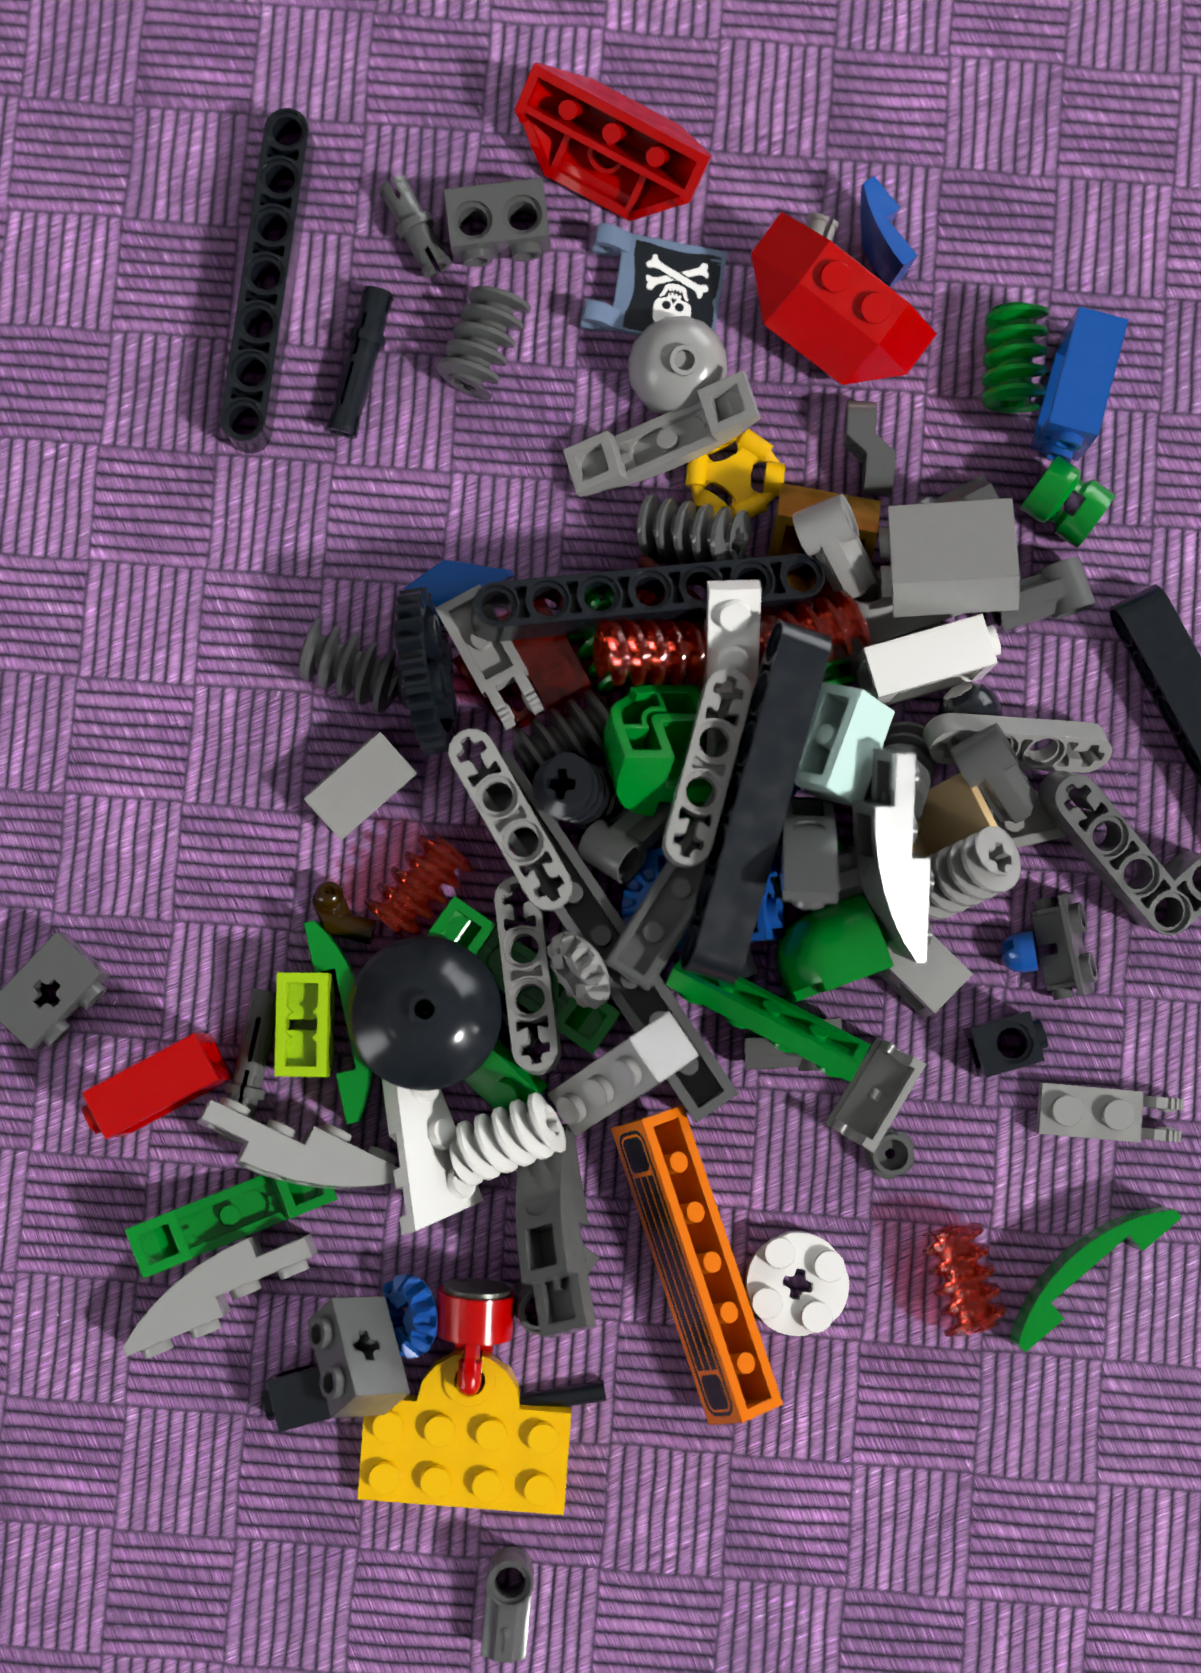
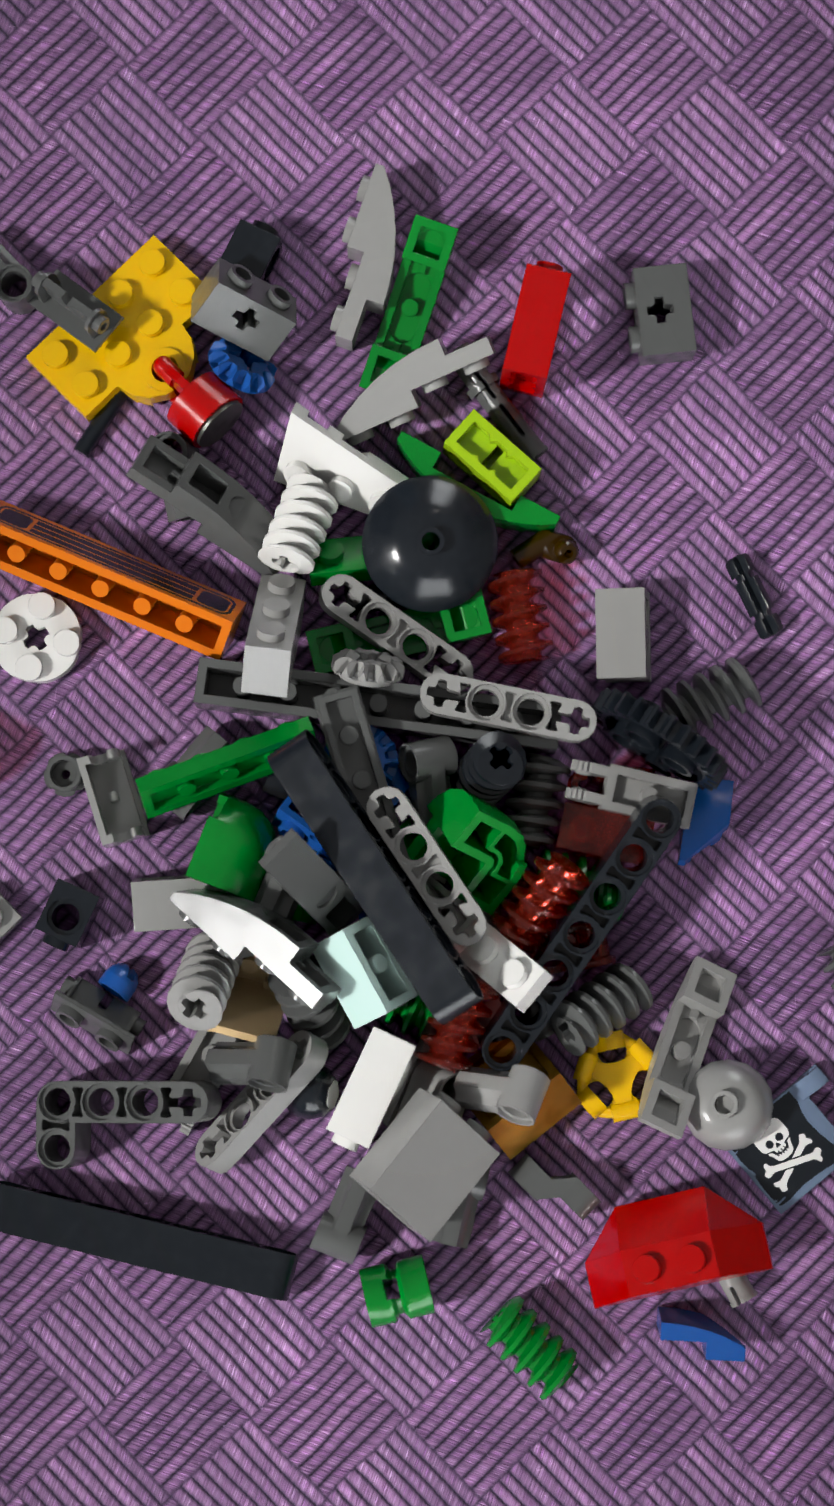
camera: 125 degrees right, 0 degrees up
(229, 705) = (754, 596): none -> black axle
(485, 1508) = (74, 308): none -> dark grey hinge
(1079, 384) = (470, 1369): blue window -> none

